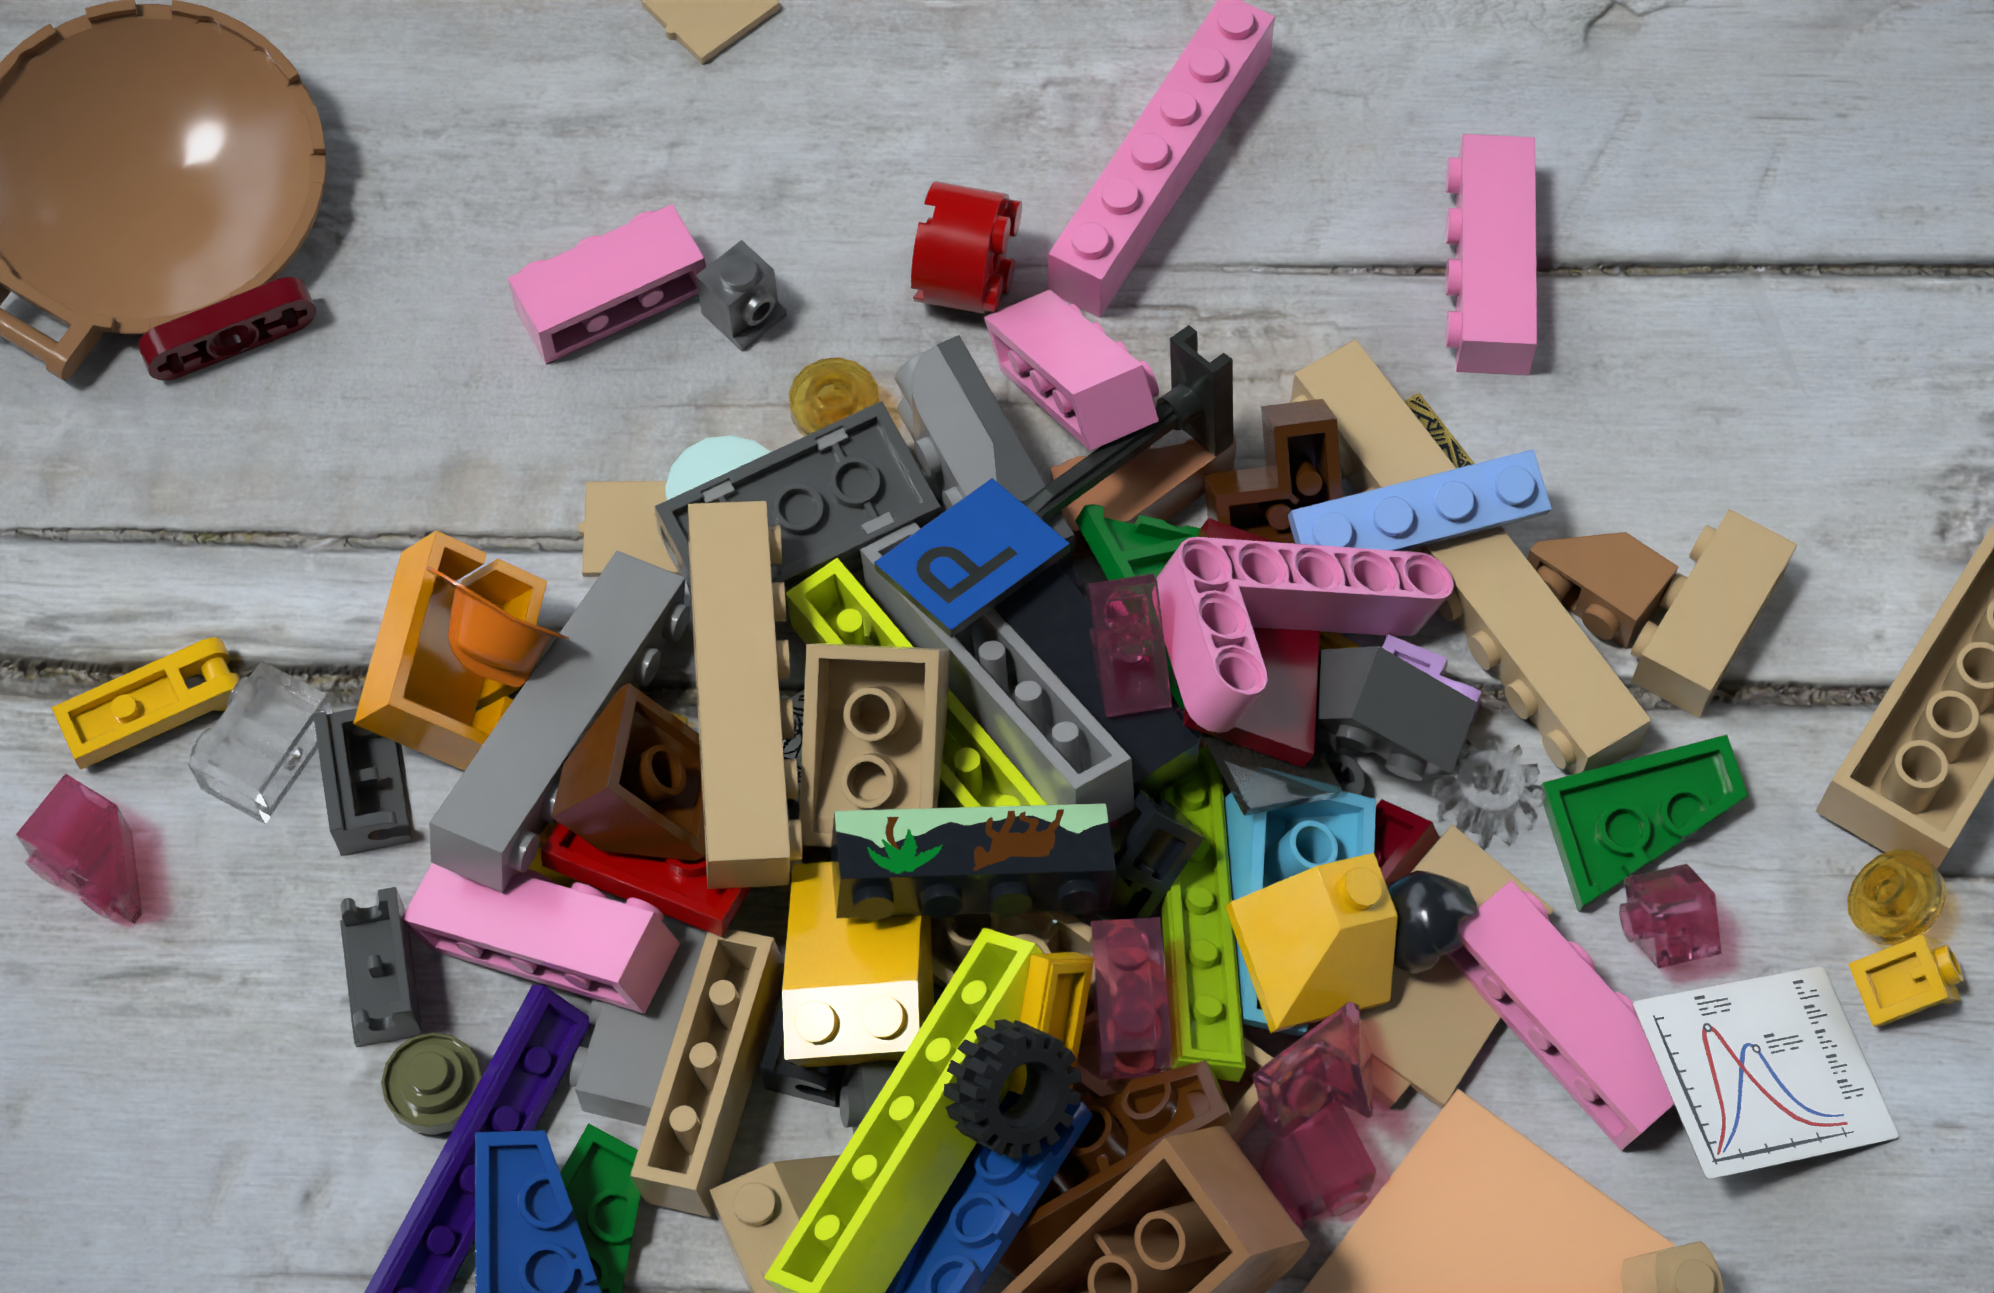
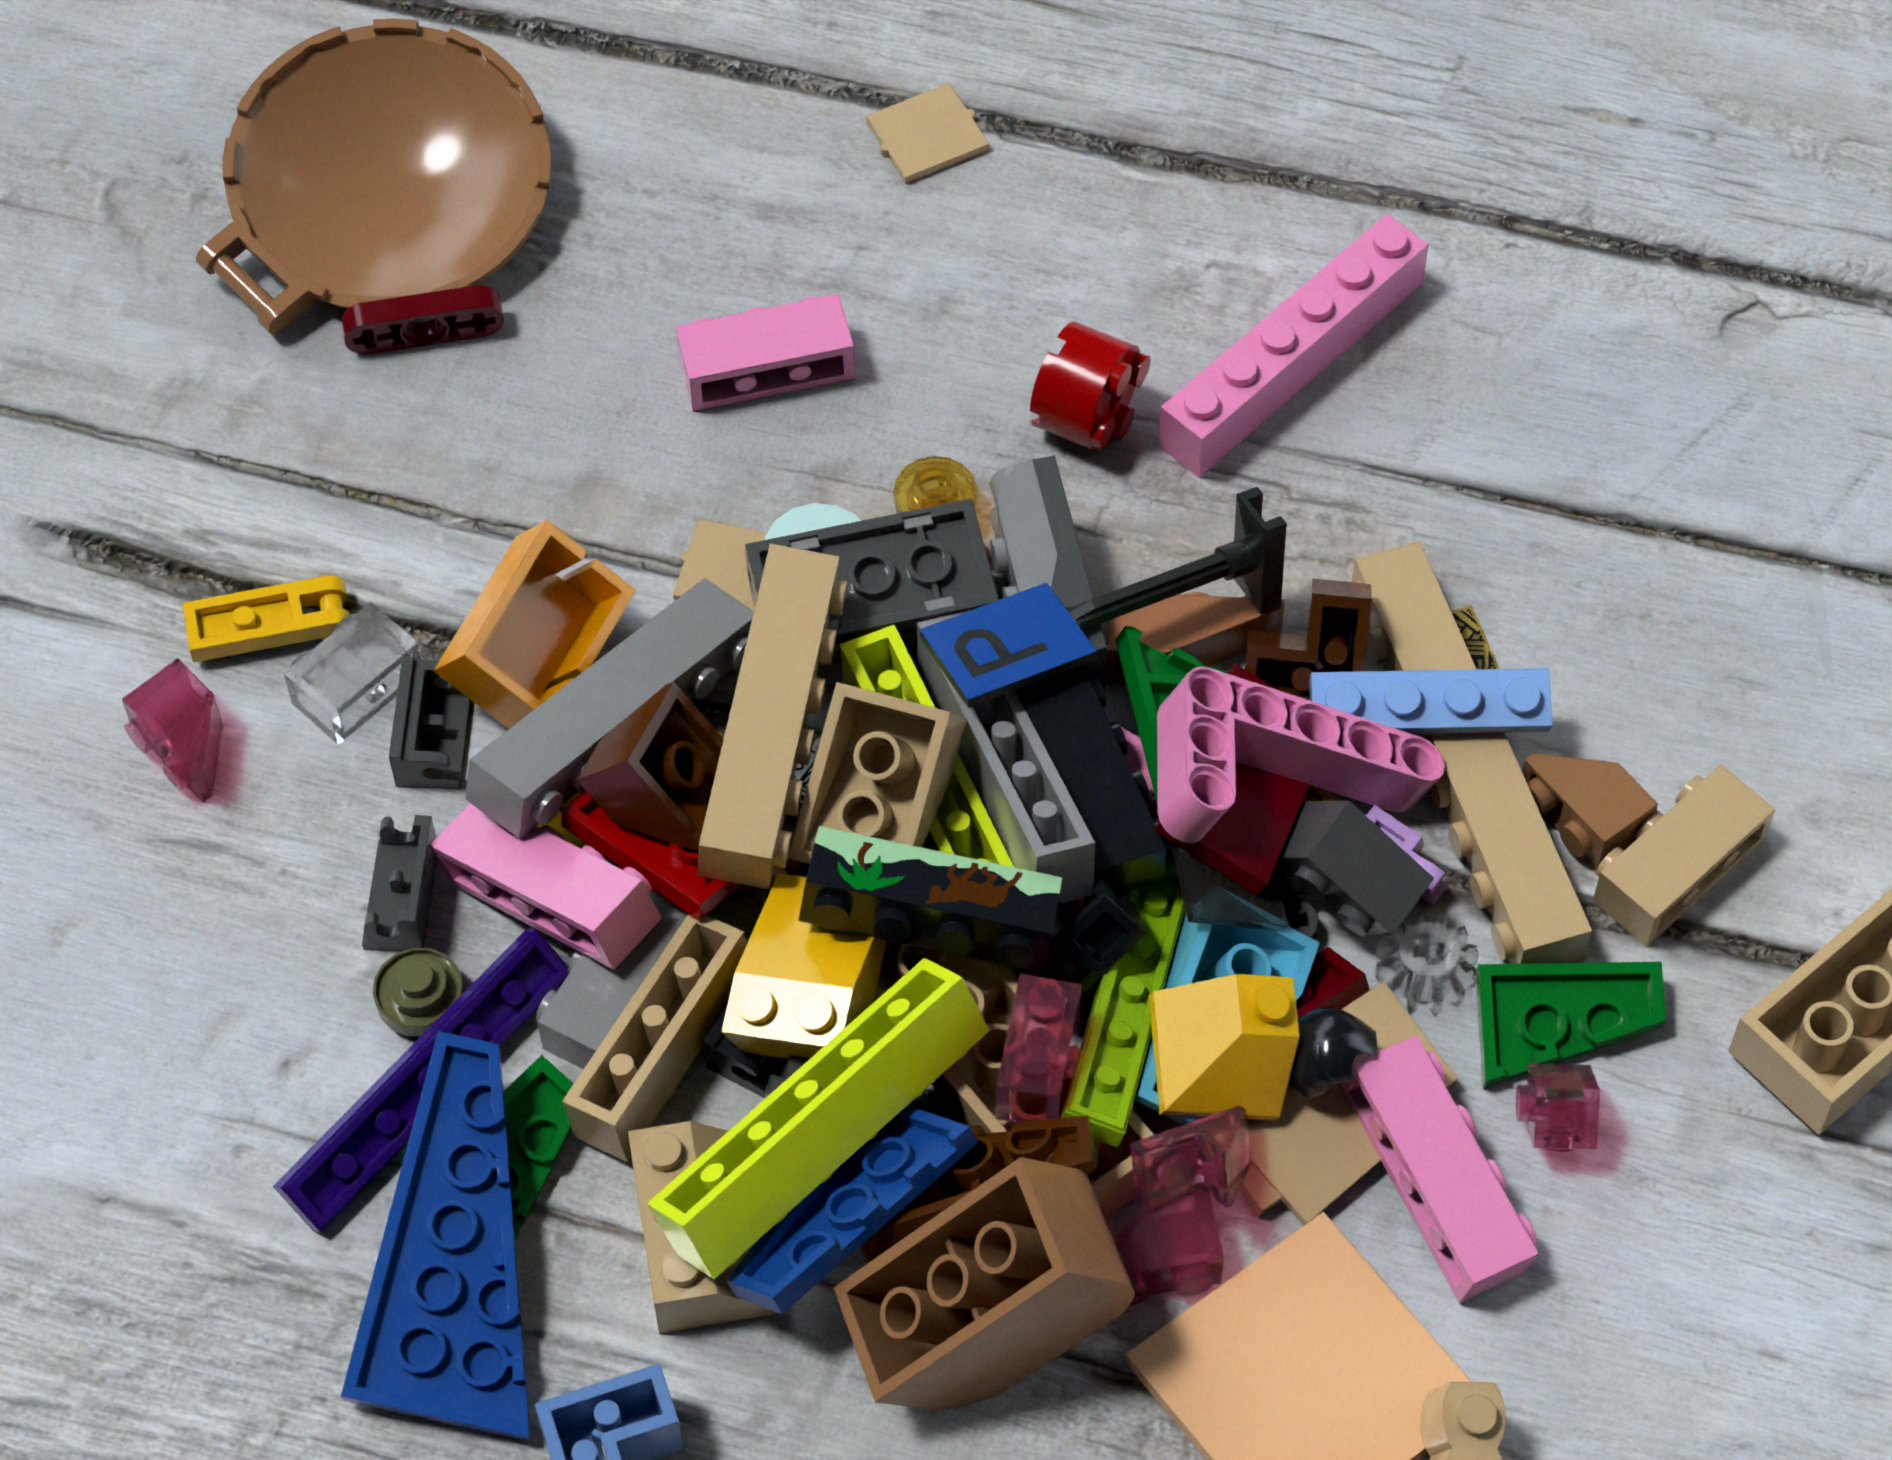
camera: 15 degrees right, 5 degrees down
(491, 639) = (569, 622): orange piece -> none
(740, 295) = (878, 387): flat silver brick -> none
(1042, 1099) = (933, 1114): black tyre -> none
(1055, 1001) = (961, 1054): yellow tile -> none
(1073, 369) = (1151, 508): bright pink brick -> none
(1129, 645) = (1123, 748): clear pink slope -> none
(1494, 255) = (1573, 499): bright pink brick -> none
(1764, 1071) = (1608, 1261): white sticker -> none
(1896, 897) = (1777, 1140): clear yellow plate -> none
(1907, 979) = (1767, 1214): yellow bracket -> none

